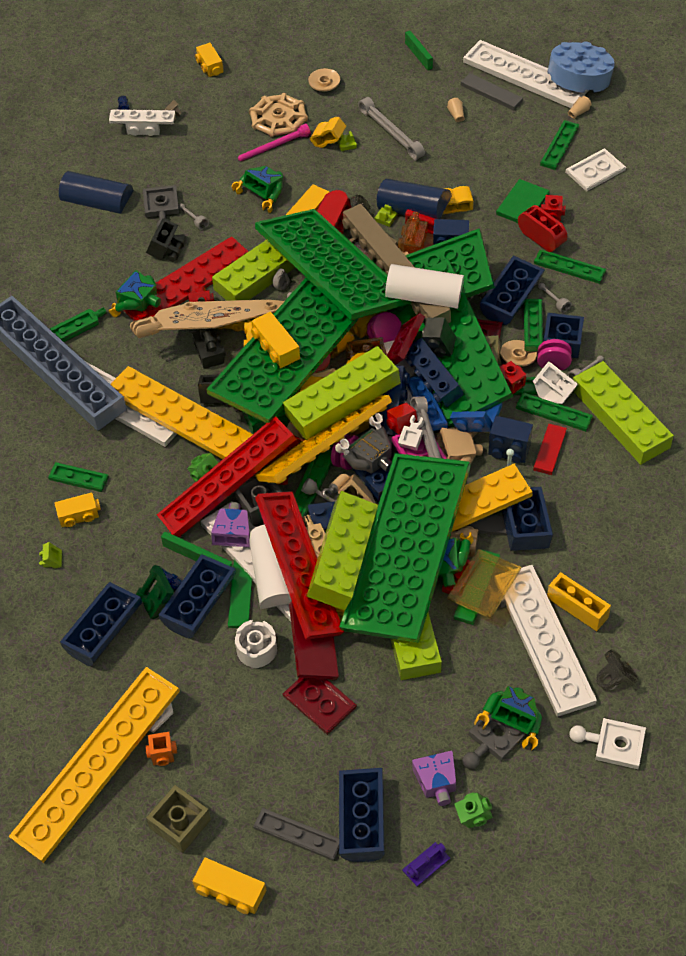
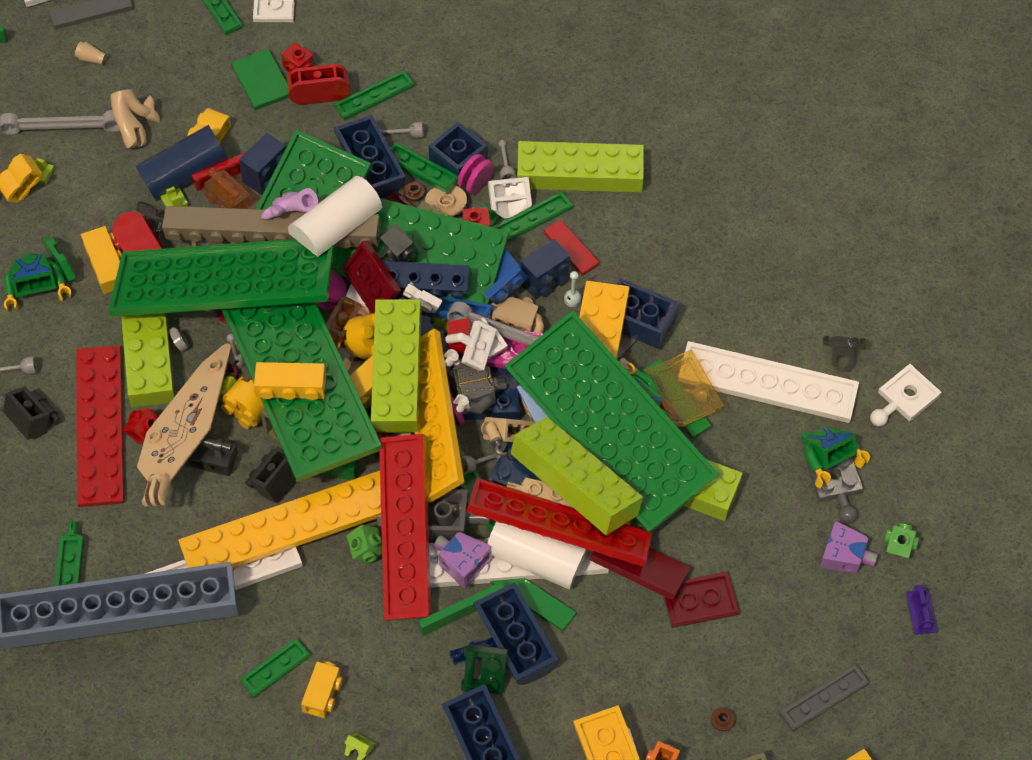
camera: 60 degrees left, 5 degrees up
(136, 294) = (87, 478): green torso -> none
(230, 777) = (720, 725): none -> reddish brown plate
(256, 643) = (609, 626): white brick -> none
(290, 180) = (54, 253): none -> green tile
(361, 815) = (847, 629): dark blue brick -> none
(395, 426) = (477, 344): none -> white plate
(412, 382) = (428, 302): none -> white plate
(416, 259) = (292, 201): none -> lavender piece
(417, 155) = (132, 131): none -> tan piece
(511, 336) = (414, 196): none -> reddish brown plate
(578, 601) = (755, 330): yellow brick -> none

